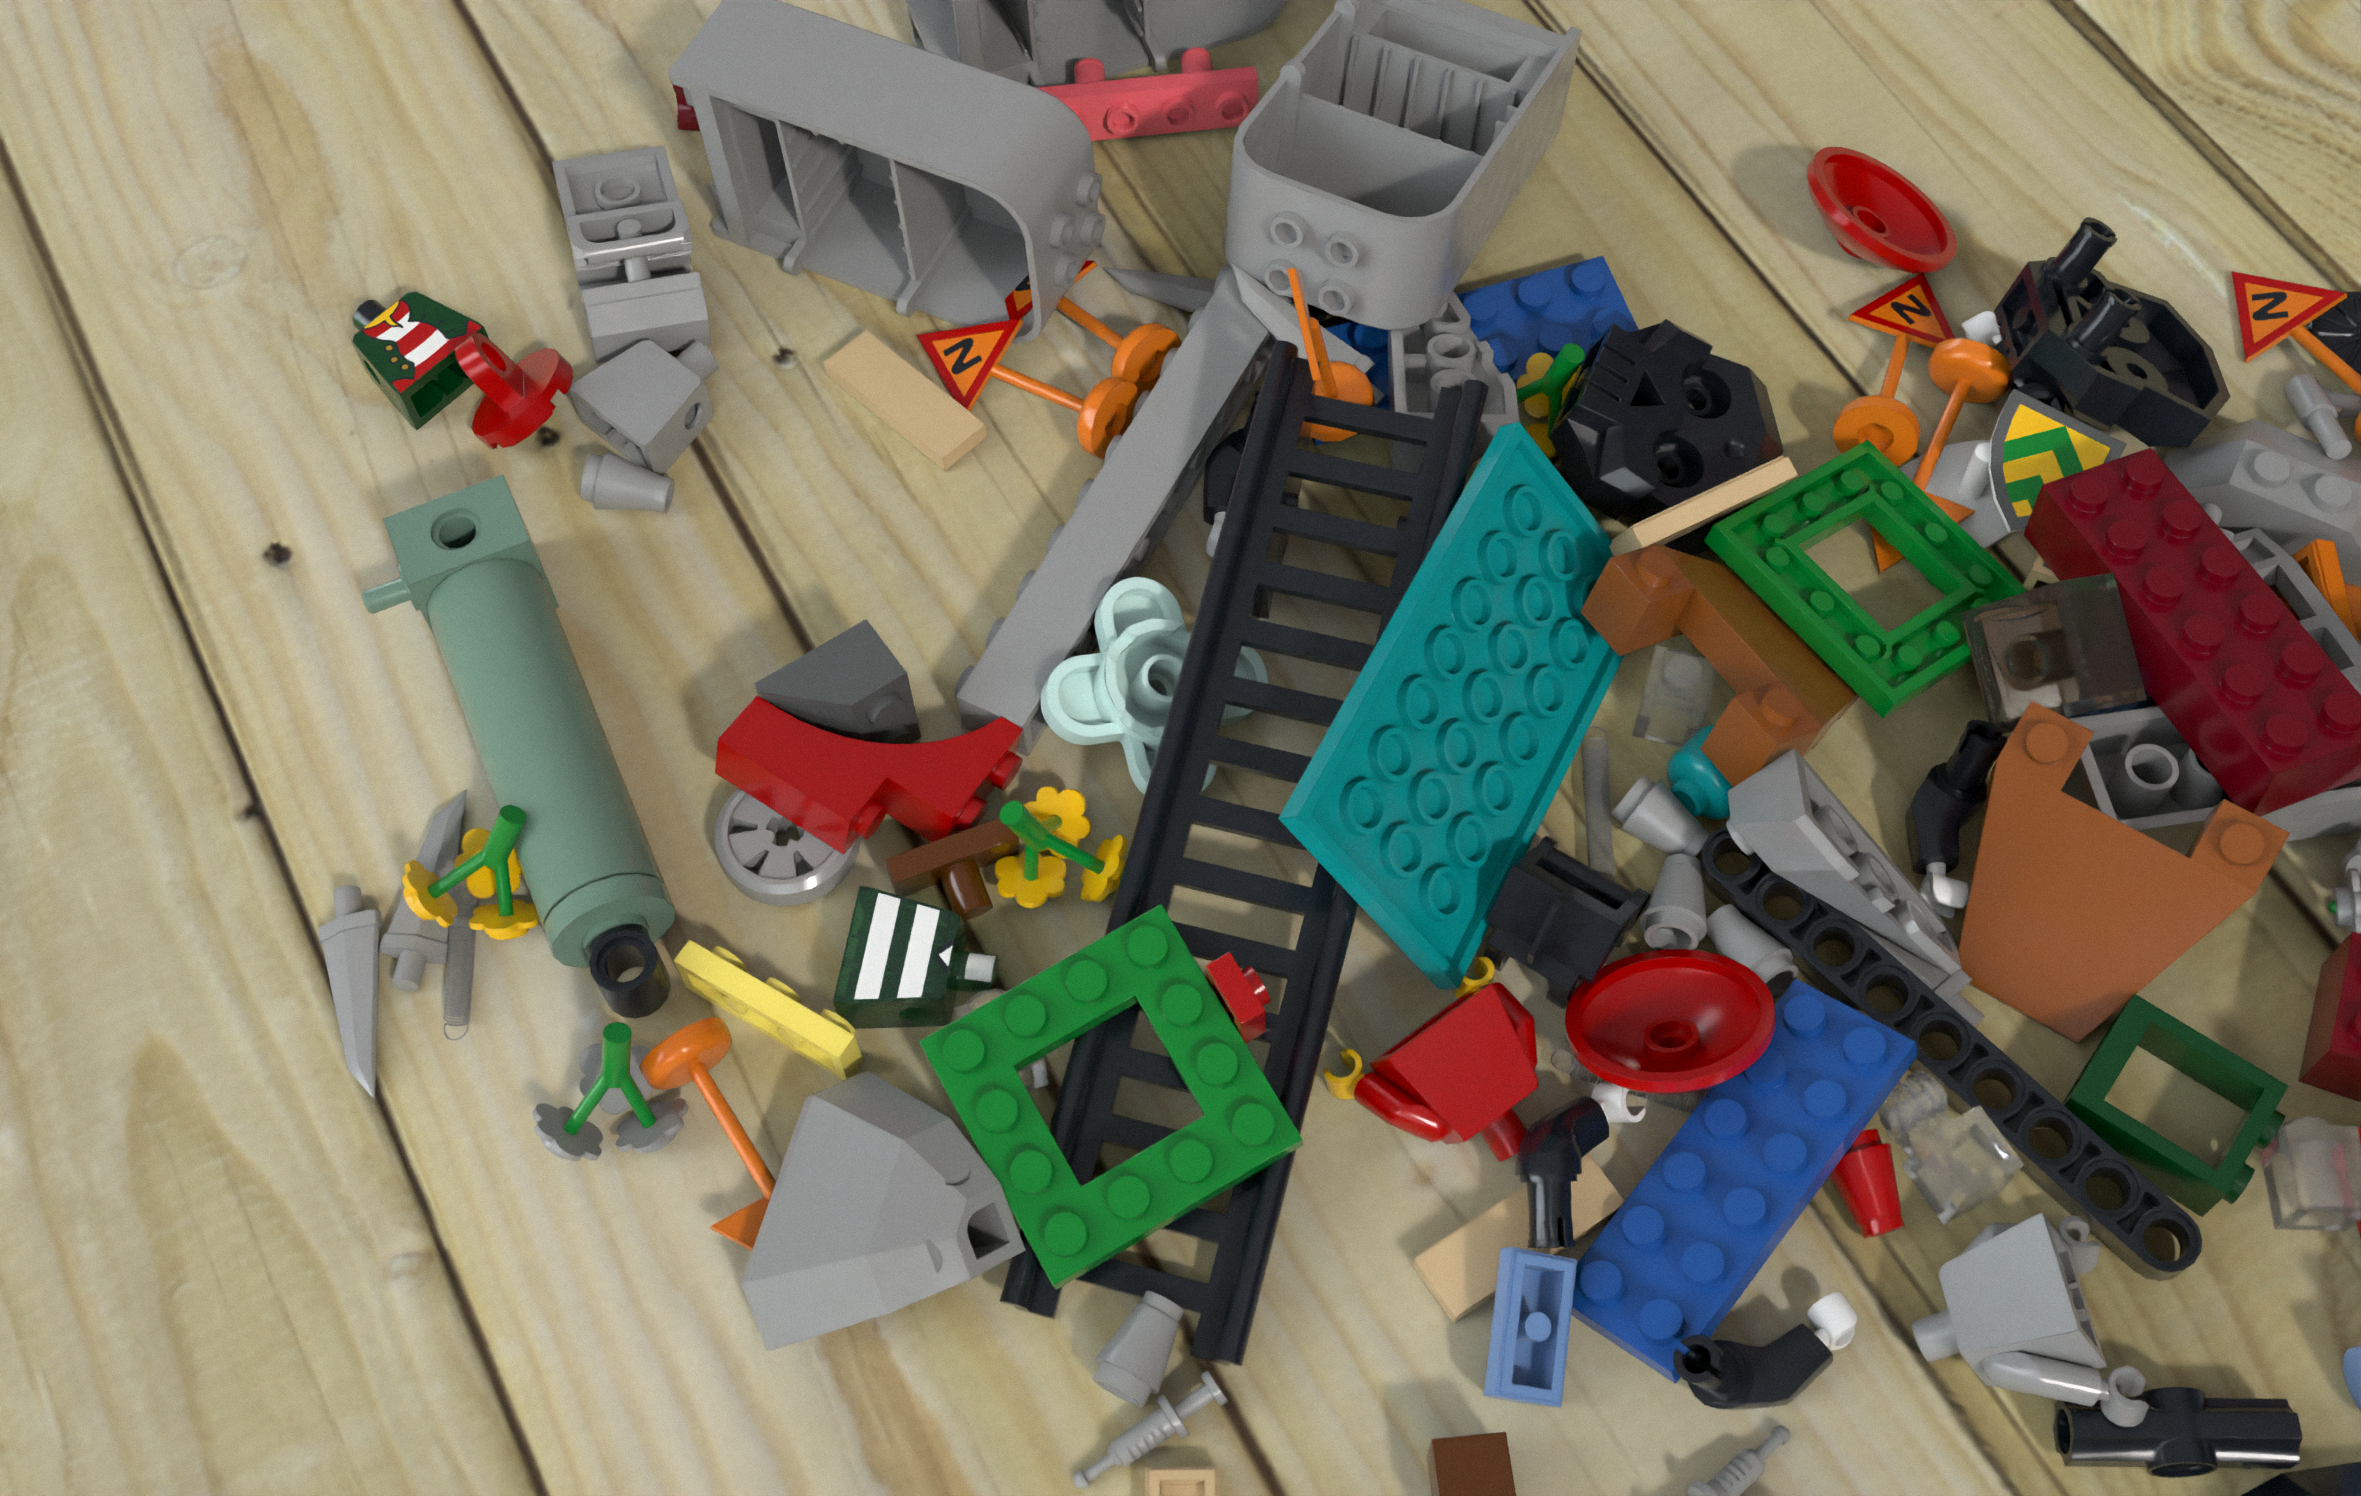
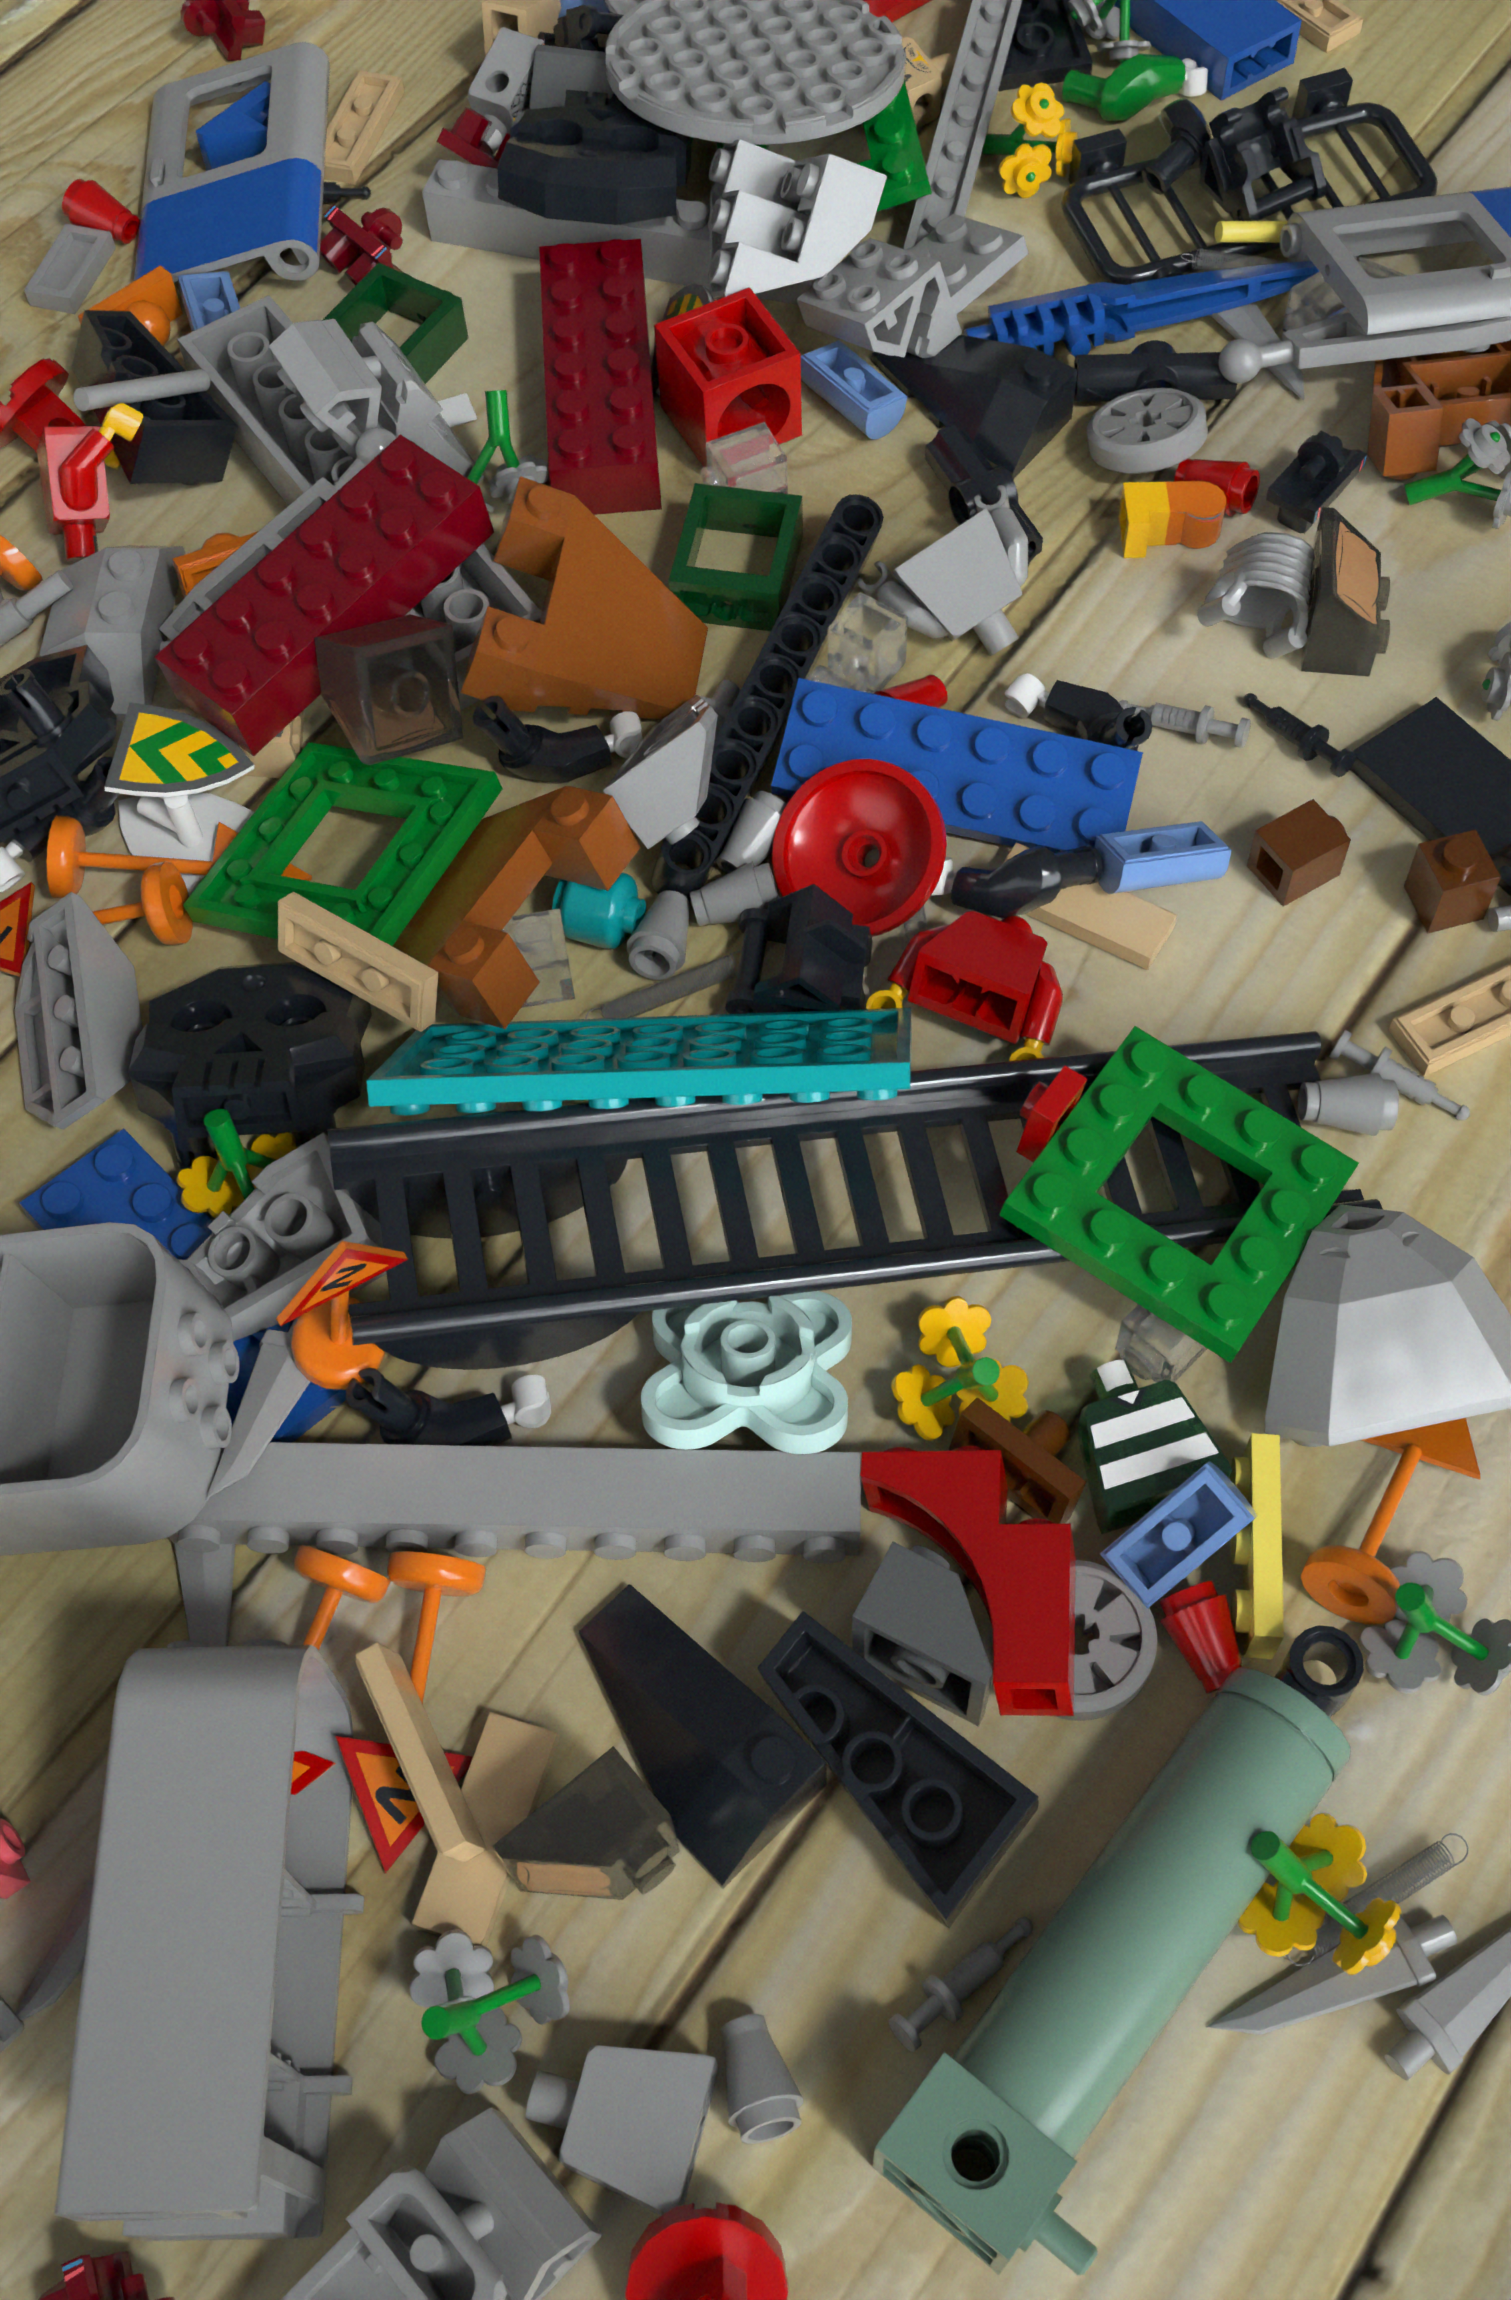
camera: 115 degrees left, 0 degrees up
(599, 625) = (953, 1989): none -> light grey piece
(716, 653) = (911, 1775): none -> black wedge
(738, 925) = (1203, 1632): none -> red cone
(763, 343) = (466, 2009): none -> light grey plant
(807, 938) = (1179, 1534): none -> medium blue brick
(833, 435) = (593, 1837): none -> clear smoke slope
(880, 555) = (701, 1736): none -> black wedge
(969, 353) = (419, 1753): none -> tan tile
(1777, 338) = (74, 1014): none -> light grey wedge

